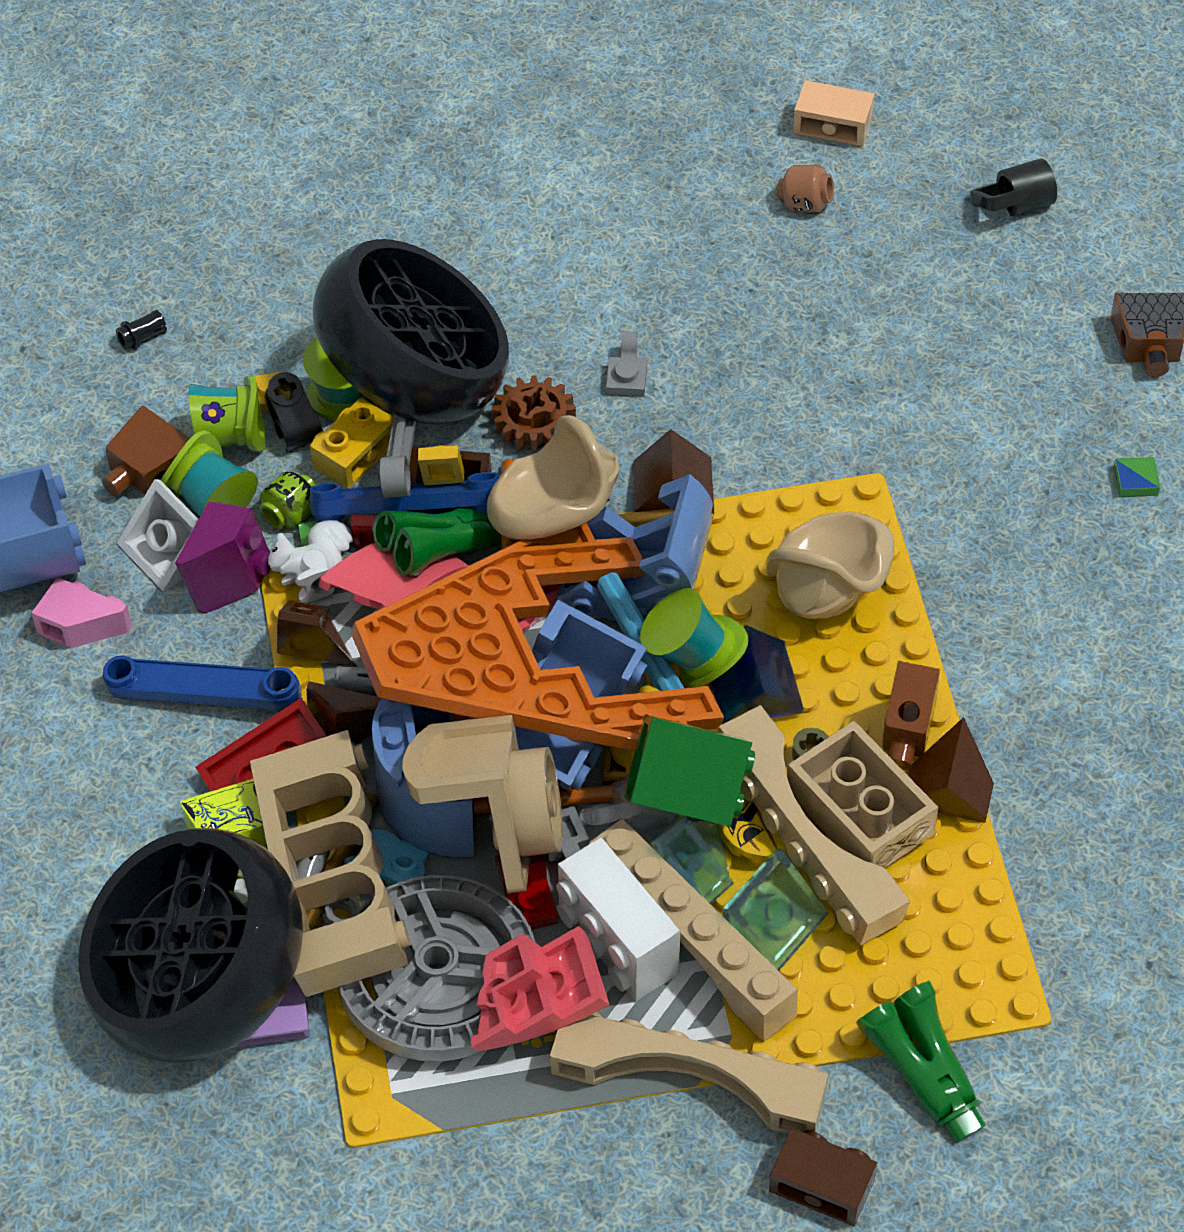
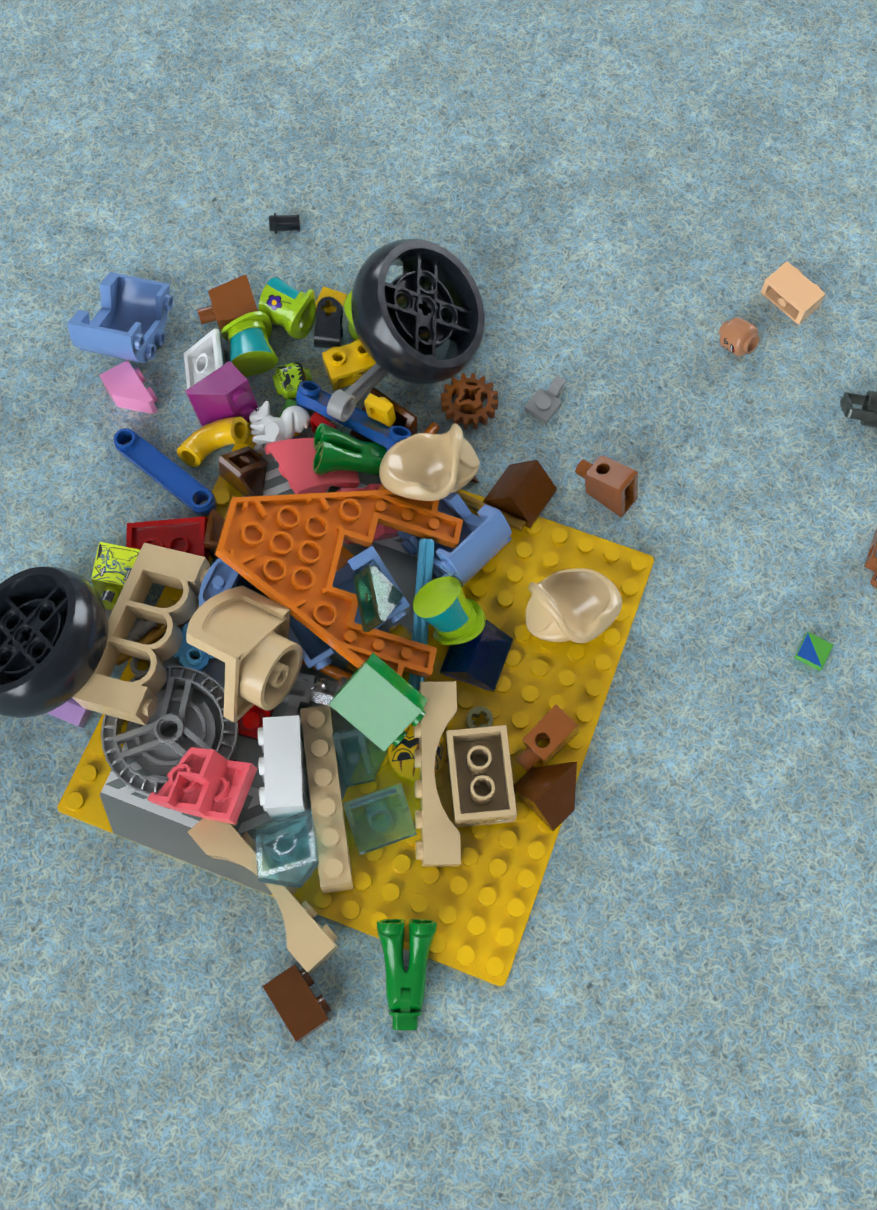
camera: 30 degrees right, 15 degrees up
(235, 613) = (211, 438): none -> yellow cylinder
(600, 654) = (375, 597): none -> clear green slope
(693, 1000) = (287, 850): none -> clear light blue slope
(774, 414) = (610, 483): none -> dark orange torso

